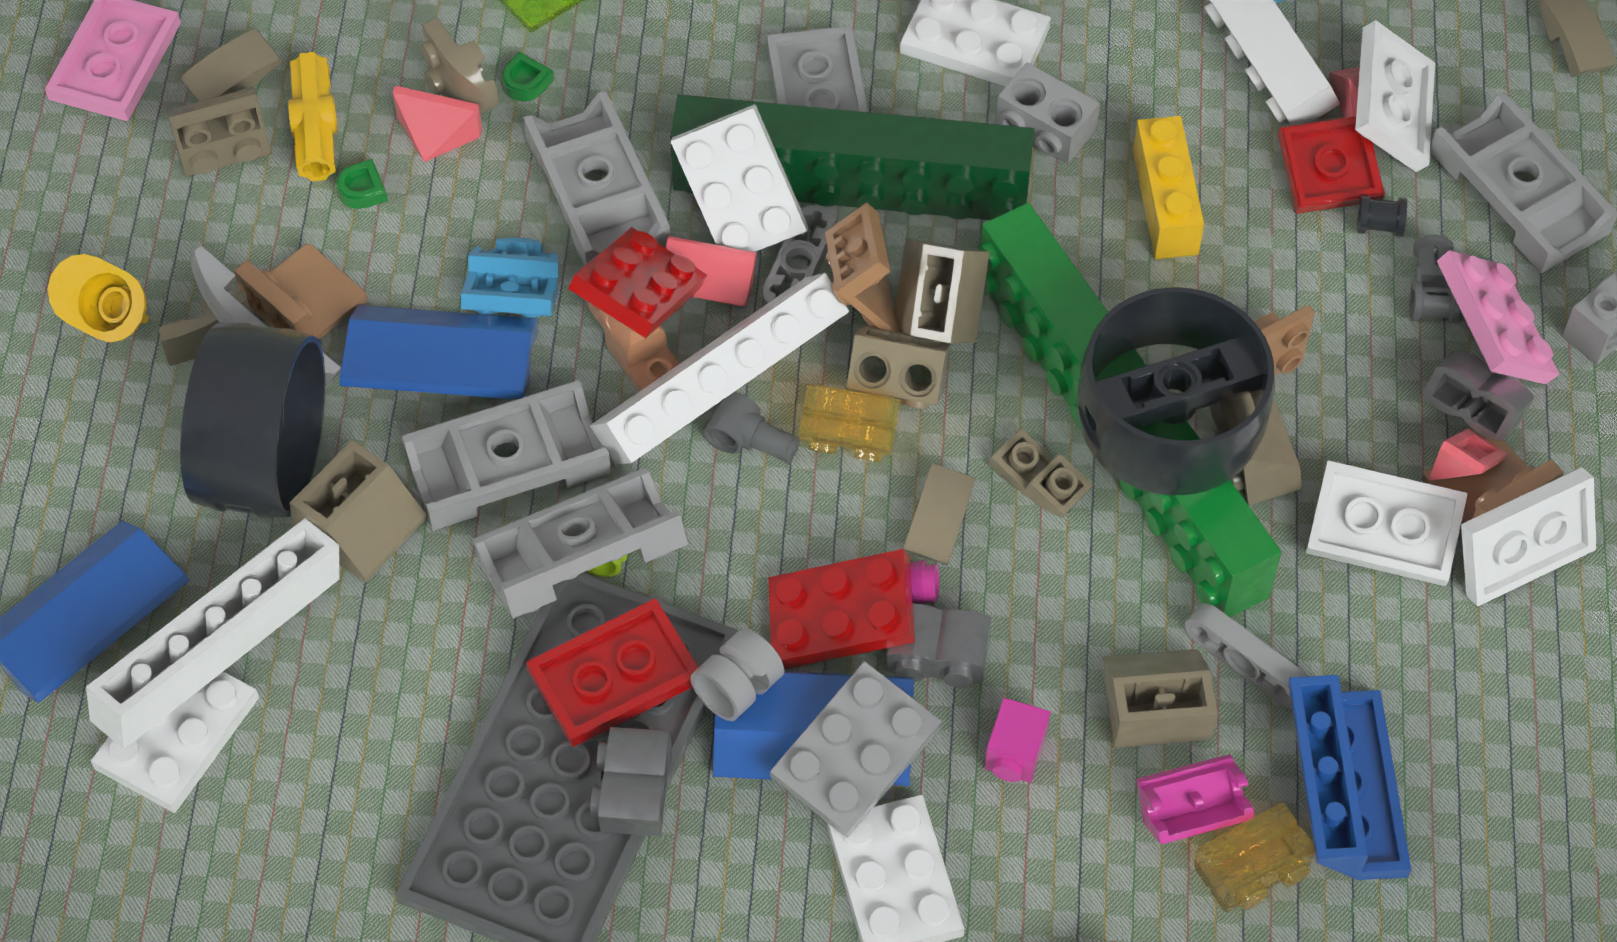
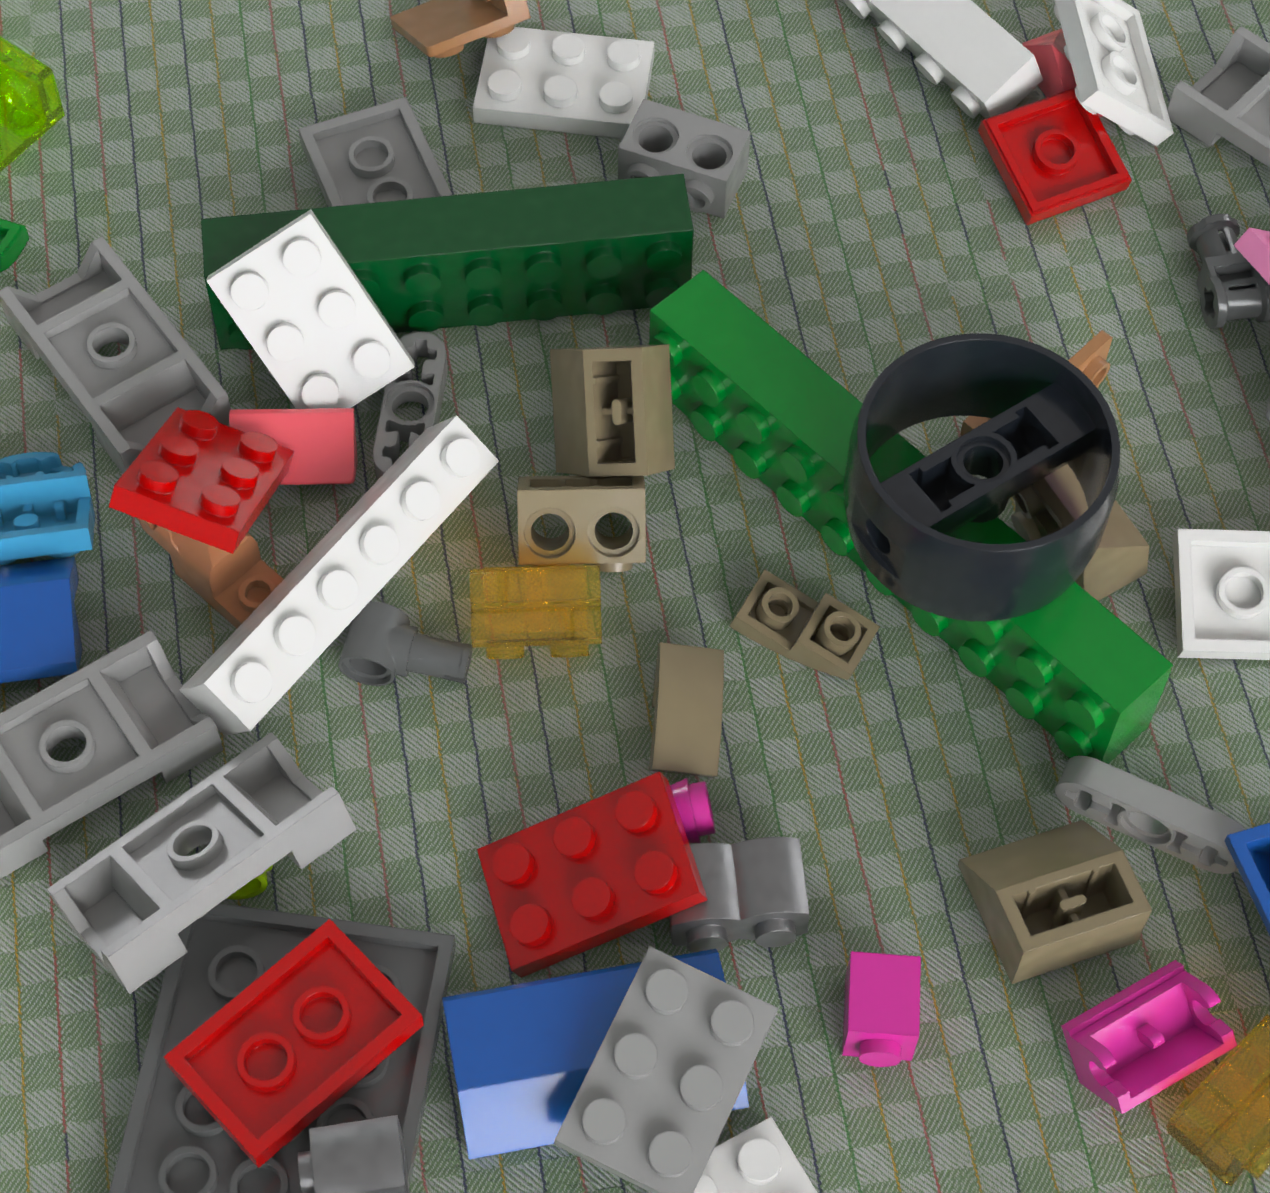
camera: 15 degrees left, 0 degrees up
(735, 677) = (470, 1016): light grey wheel -> none
(861, 267) = (500, 396): medium nougat bracket -> none
(1168, 187) = (864, 221): yellow brick -> none
(1382, 215) = (1137, 205): black bush -> none

